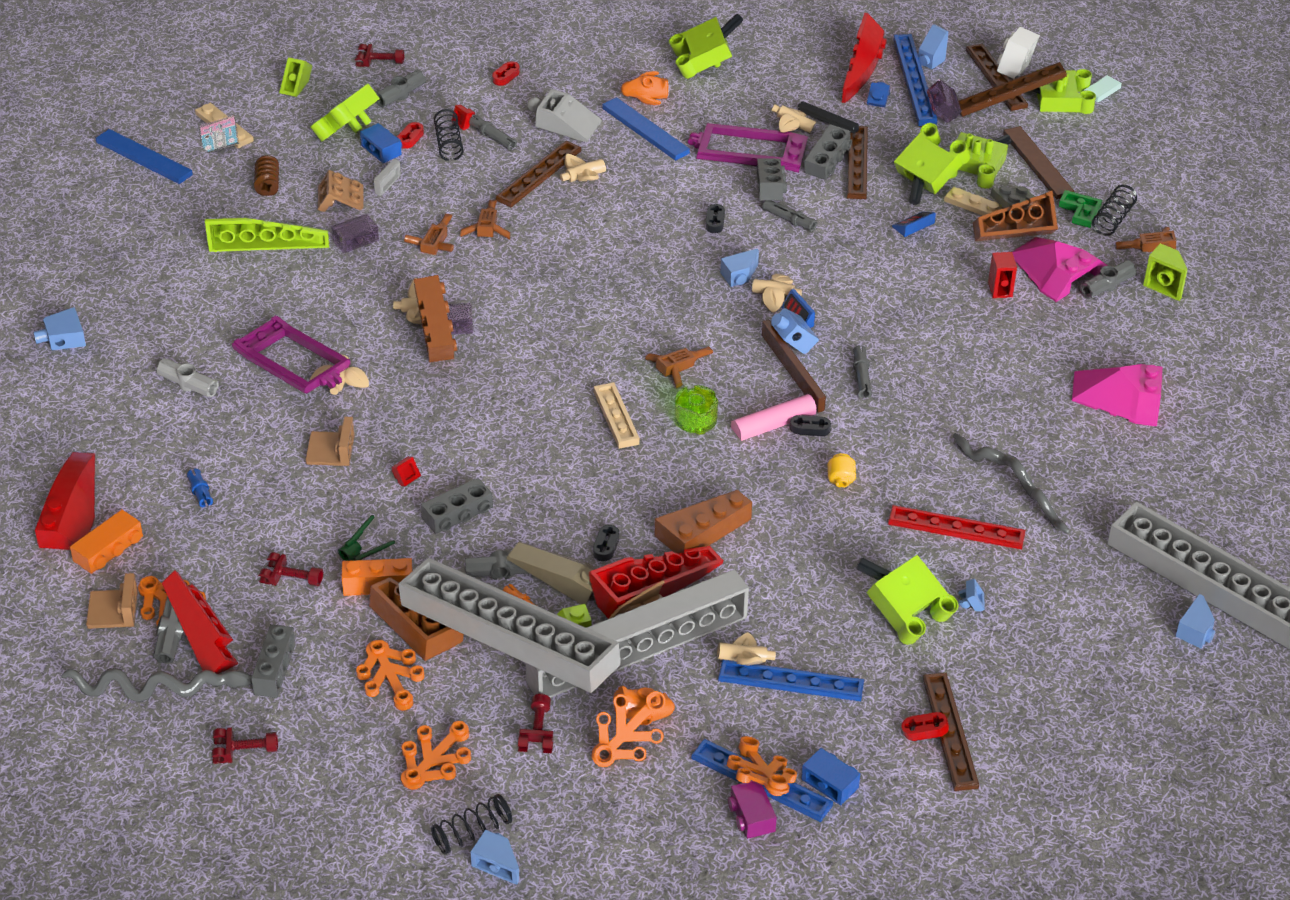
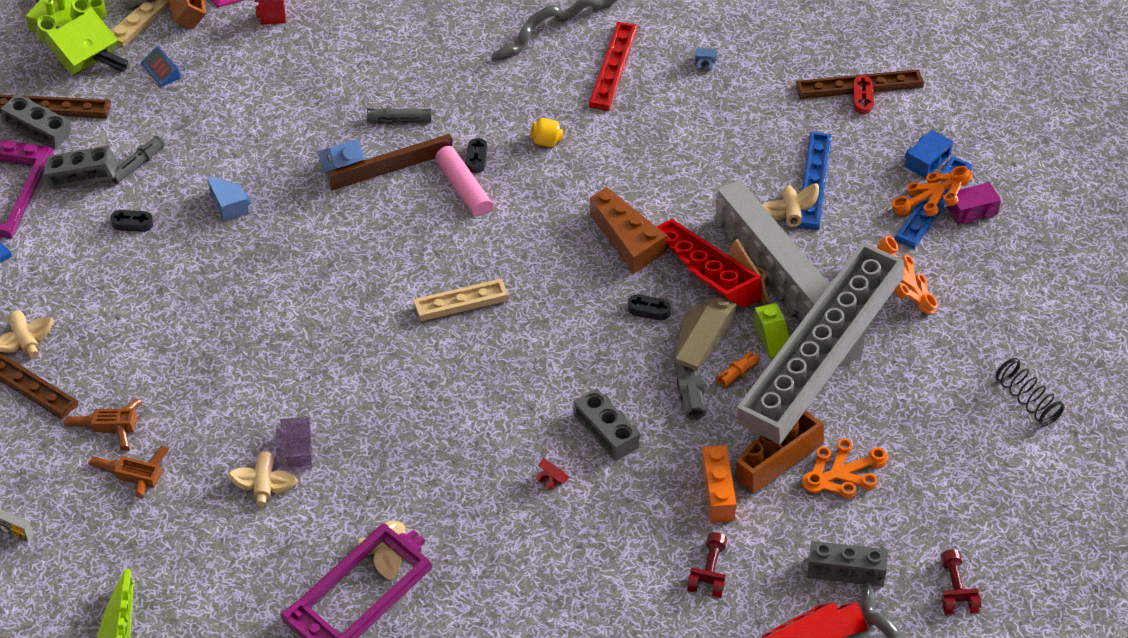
camera: 90 degrees left, 5 degrees up
(332, 447) = (511, 540): medium nougat bracket -> none
(340, 188) = (30, 576): medium nougat bracket -> none
(351, 549) = (674, 512): dark green plant -> none
(355, 233) = (119, 548): clear purple brick -> none
(434, 318) = (323, 441): dark orange wedge -> none
(434, 757) = (946, 430): orange plant -> none
(495, 856) = (1060, 374): medium blue slope -> none
(539, 704) = (913, 345): dark red bar -> none
(677, 361) = (377, 252): dark orange piece -> none
(696, 409) = (462, 232): clear neon green brick -> none
(774, 290) = (265, 171): tan plant -> none
(798, 305) = (300, 156): slope -> none
(907, 593) = (722, 89): piece -> none

